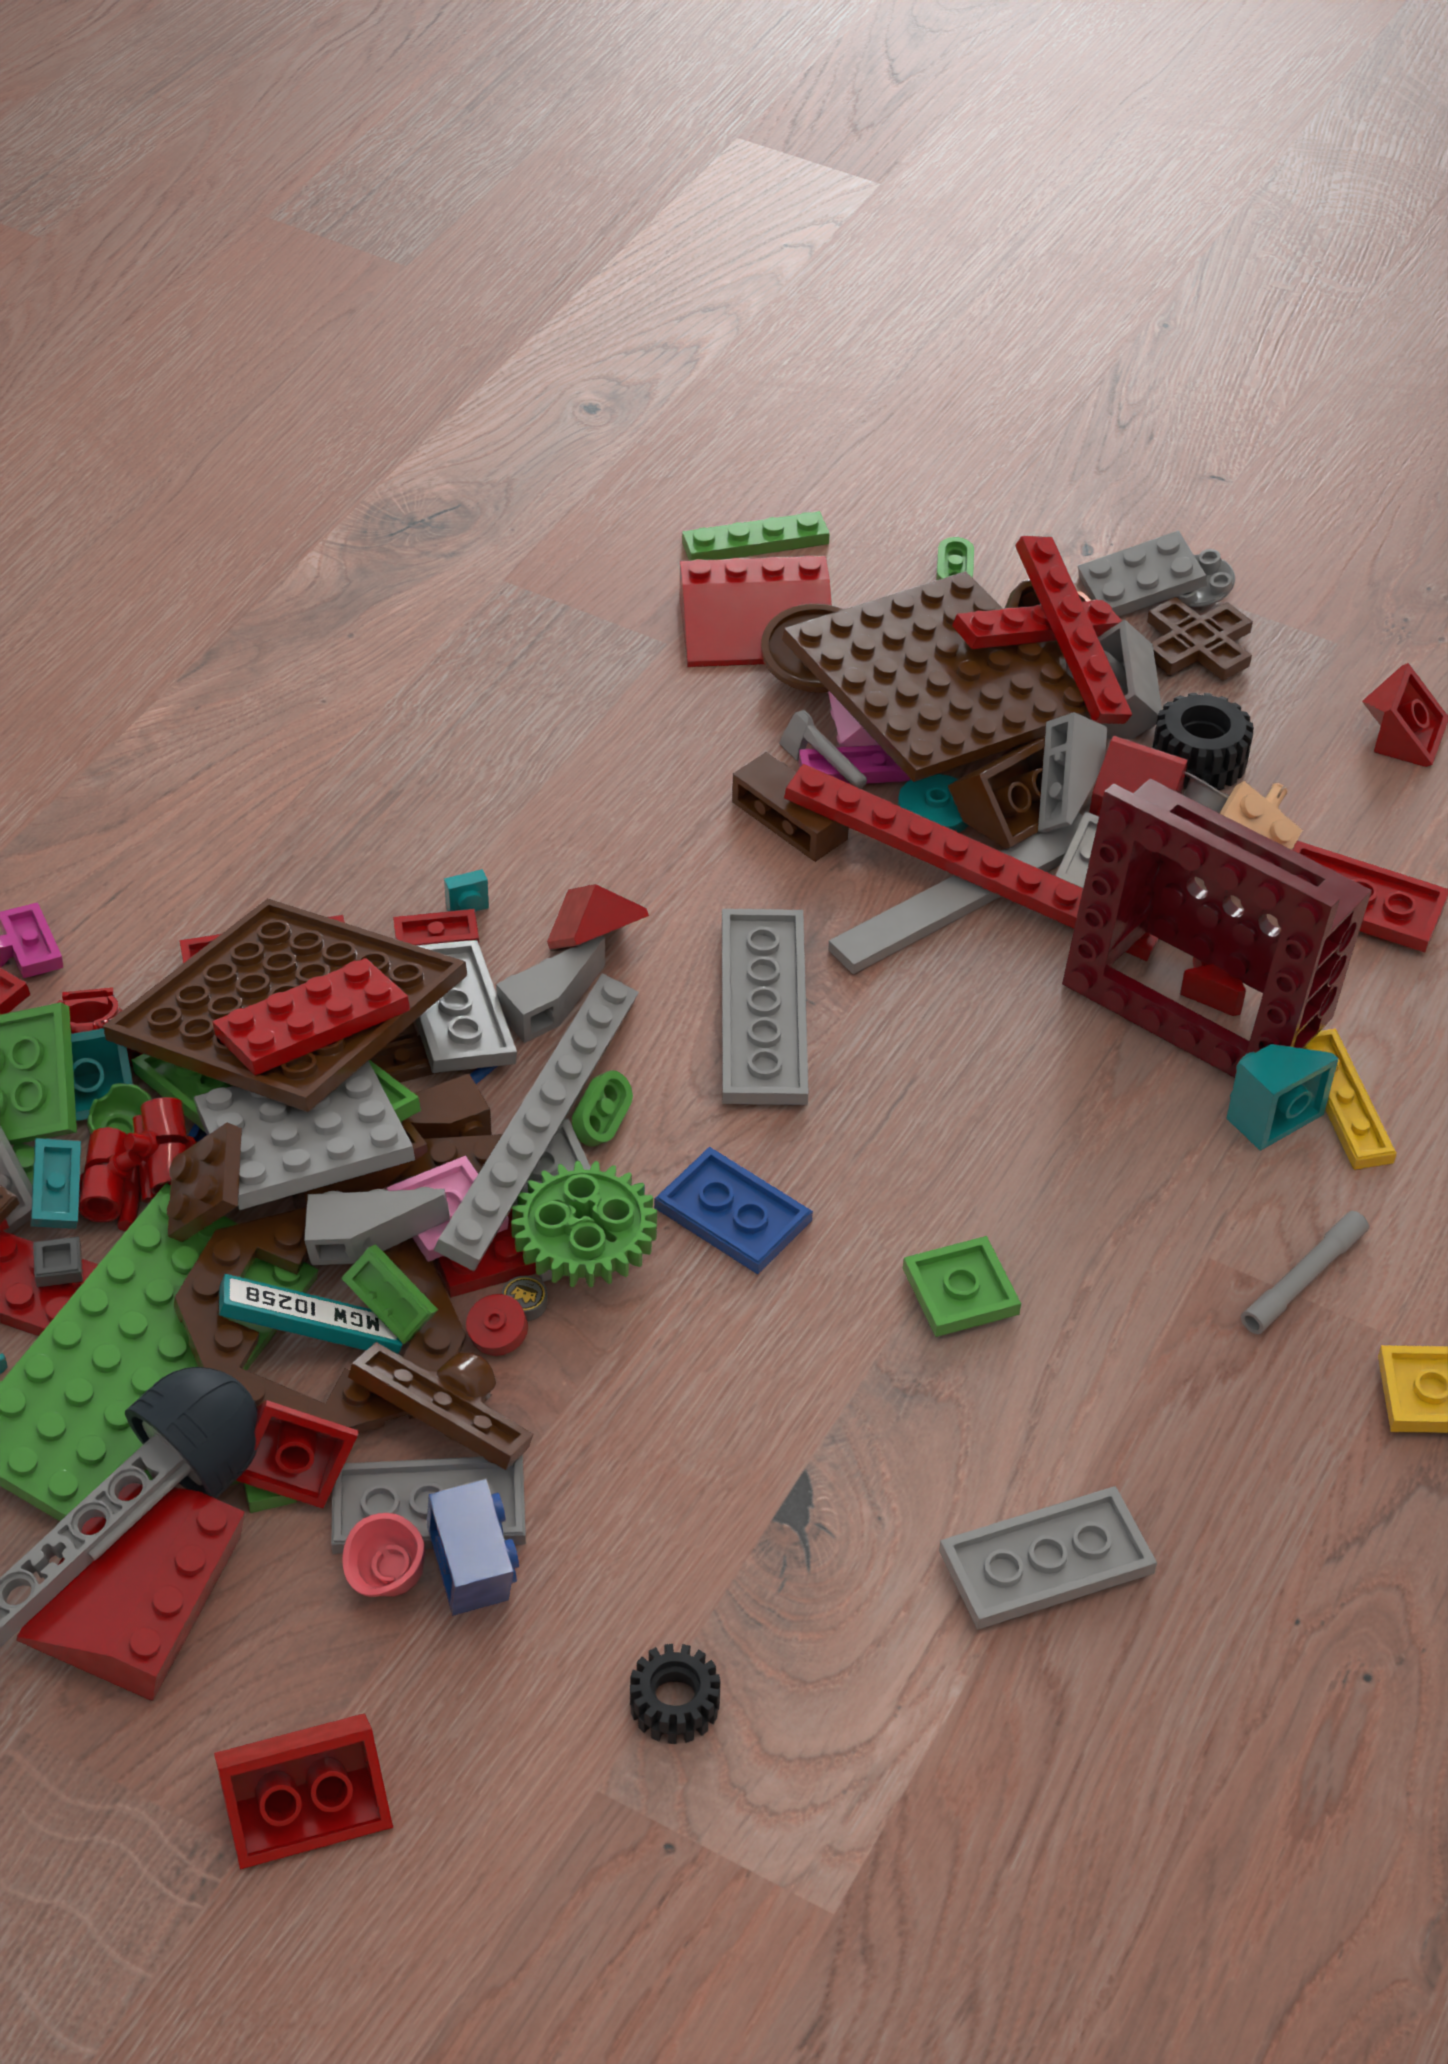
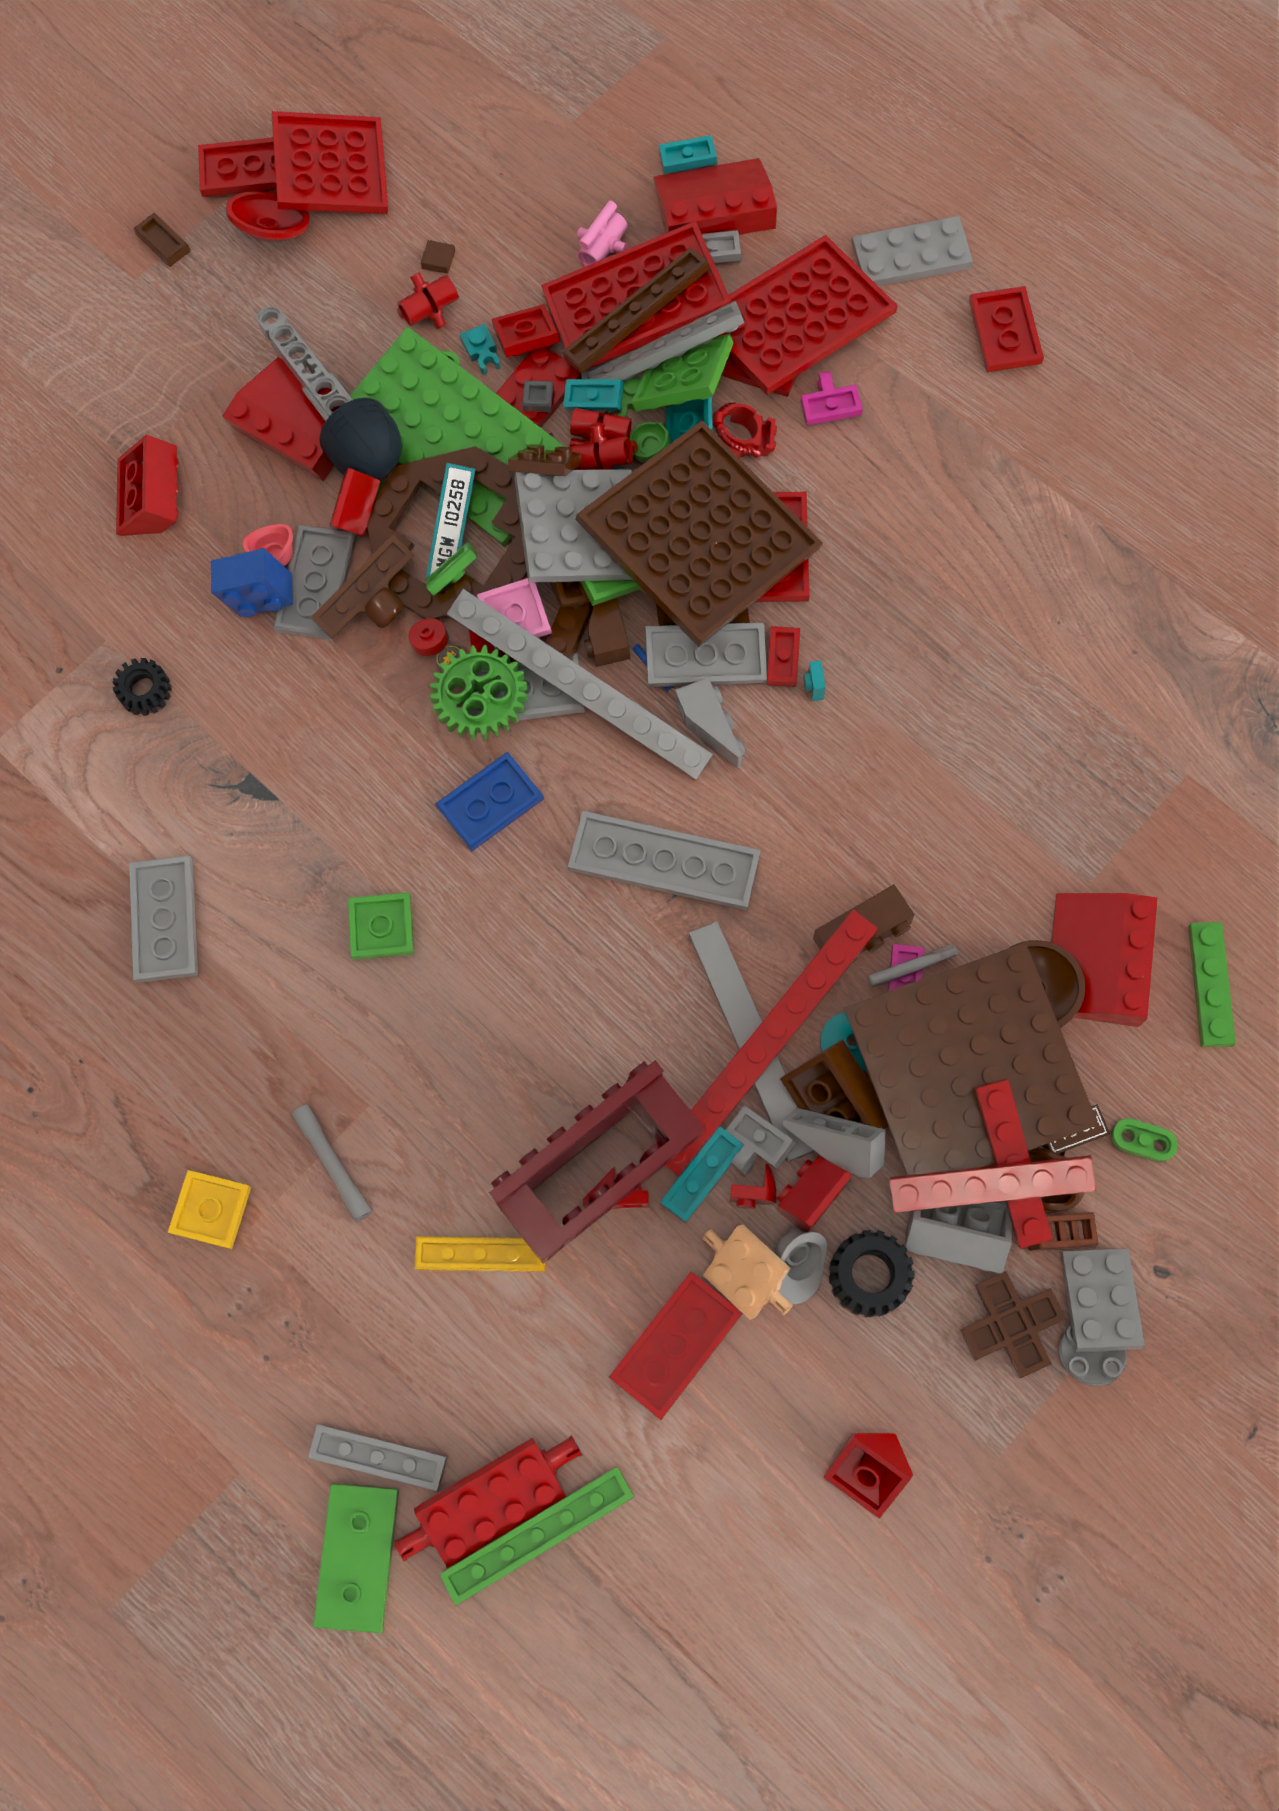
camera: 110 degrees right, 25 degrees up
(310, 1016) = (661, 533): red plate -> none
(347, 1224) = (499, 544): light grey slope -> none
(591, 913) = (759, 756): red slope -> none
(600, 1116) = (592, 733): bright green plate -> none
(1279, 1092) = (471, 1185): teal slope -> none

